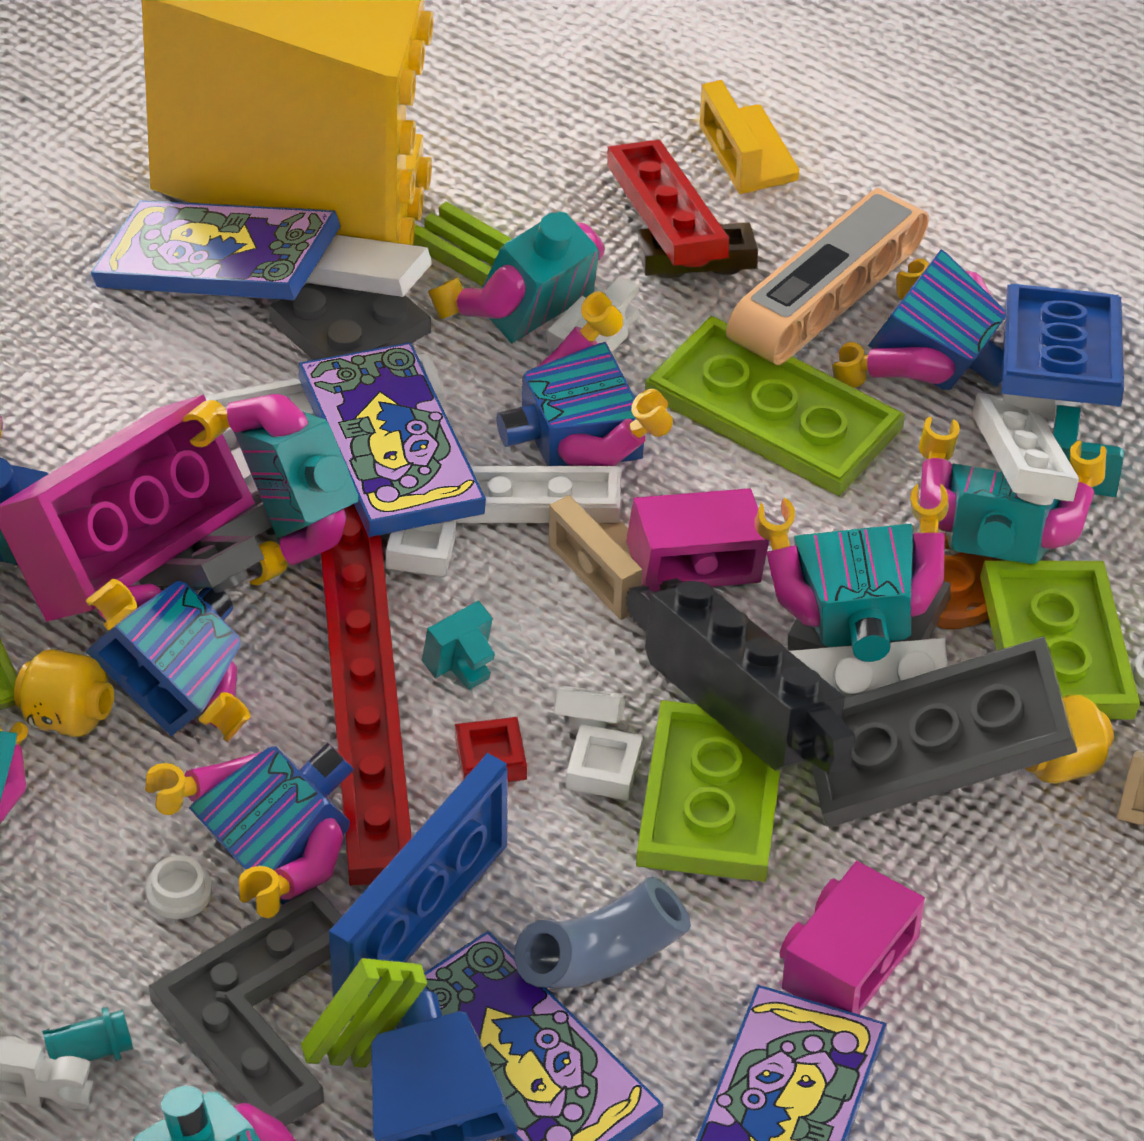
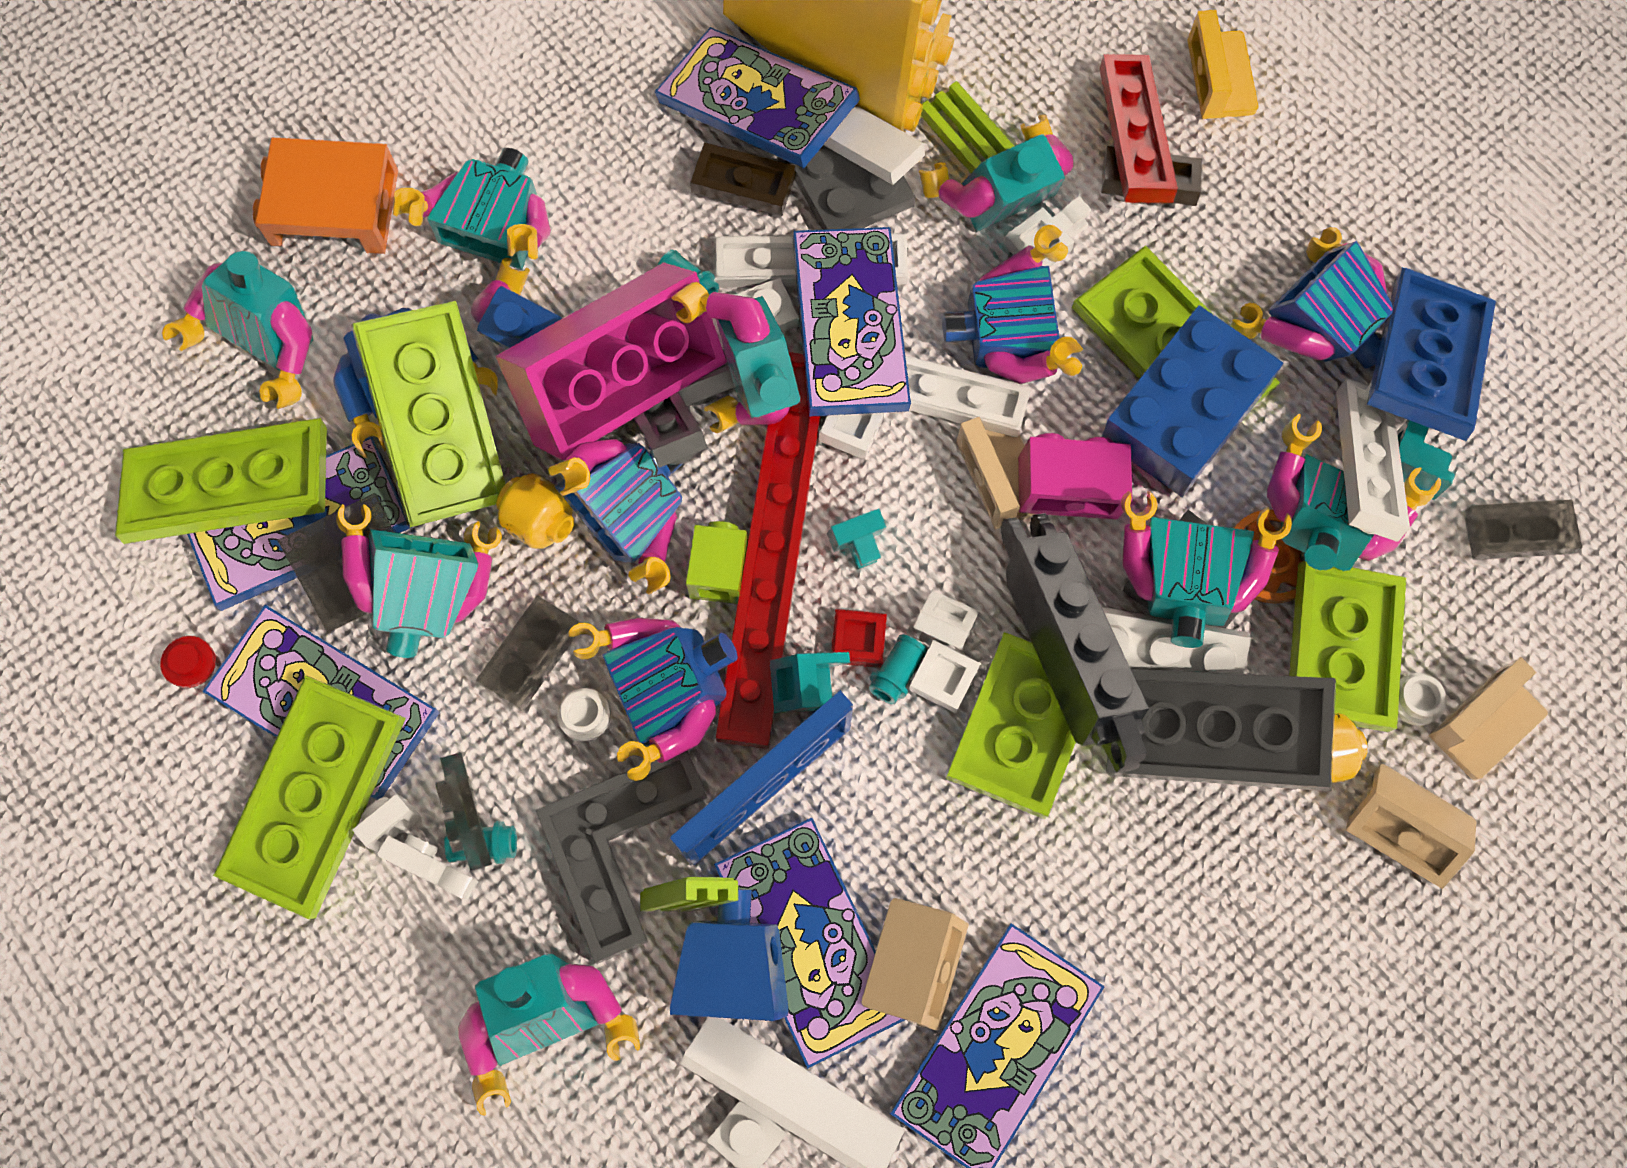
camera: 15 degrees right, 25 degrees up
(64, 991) = (465, 829): none -> clear smoke plate
(94, 839) = (528, 653): none -> clear smoke plate
(221, 335) = (743, 179): none -> dark brown plate
(301, 703) = (717, 562): none -> lime brick
(432, 776) = (803, 680): none -> teal panel
(542, 779) = (891, 679): none -> teal pin
(602, 941) = (898, 855): sand blue cylinder -> none
(657, 1041) = (915, 963): none -> tan panel
(809, 434) = (1191, 400): none -> blue brick
(827, 276) = (1252, 231): beam -> none
(851, 939) = (1097, 903): dark pink brick -> none

